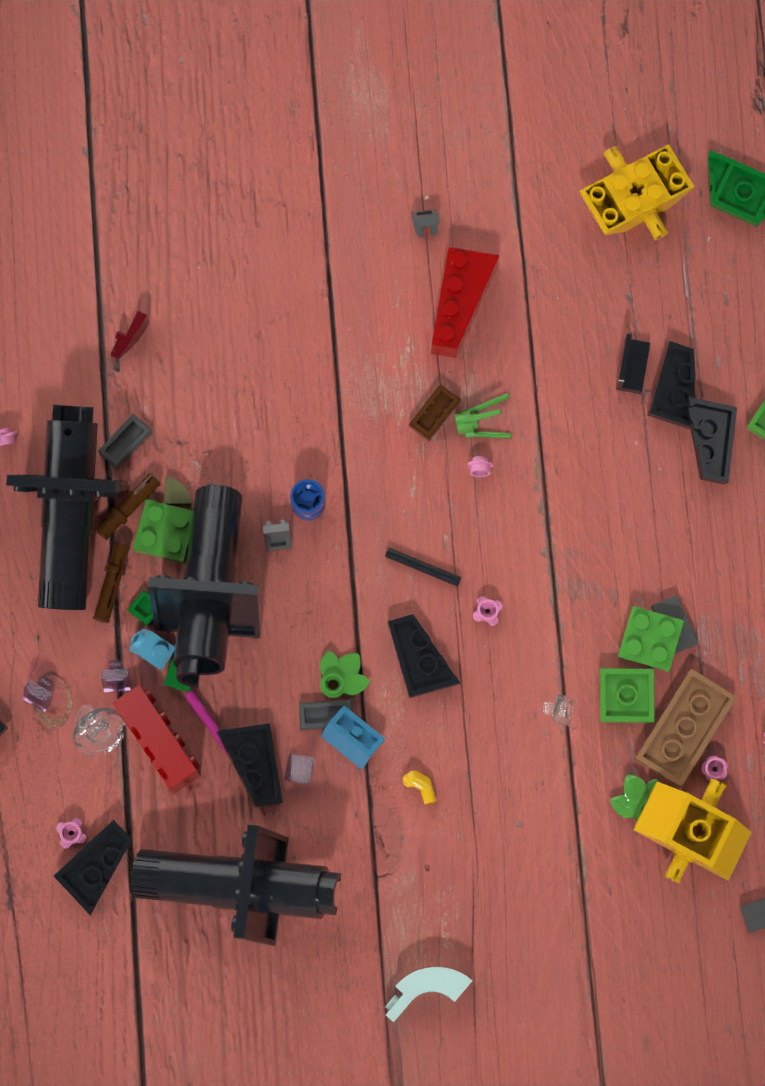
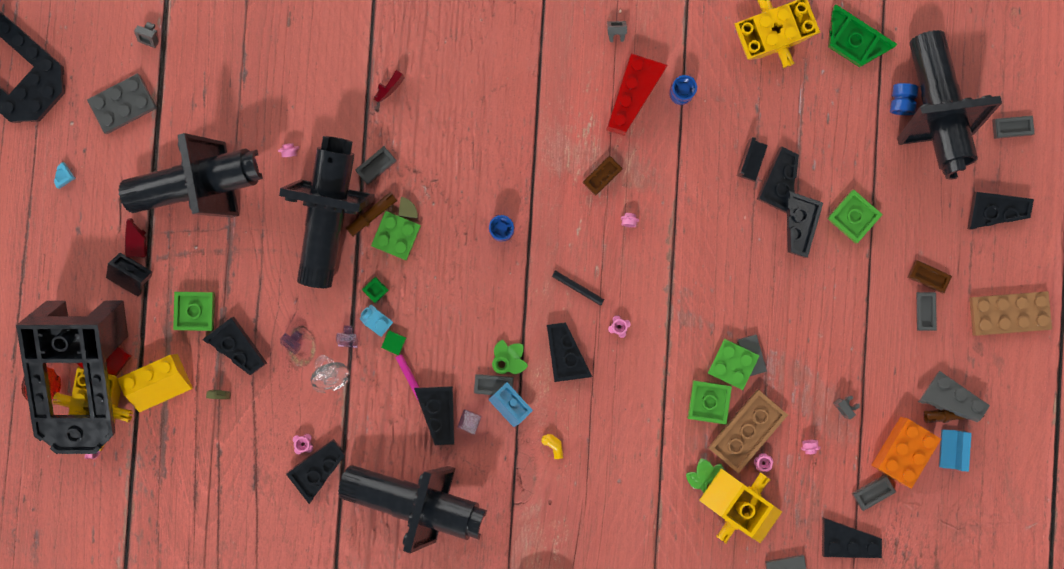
camera: 10 degrees right, 10 degrees up
(109, 590) = (353, 268): reddish brown pin -> none
(156, 738) = (371, 387): red wedge -> none
(207, 602) = (417, 296): black piece -> none
(277, 536) = (476, 252): dark grey tile -> none
(467, 419) = (625, 185): bright green plant -> none
(525, 285) = (683, 89): none -> blue wheel
(560, 710) = (660, 406): clear tile -> none

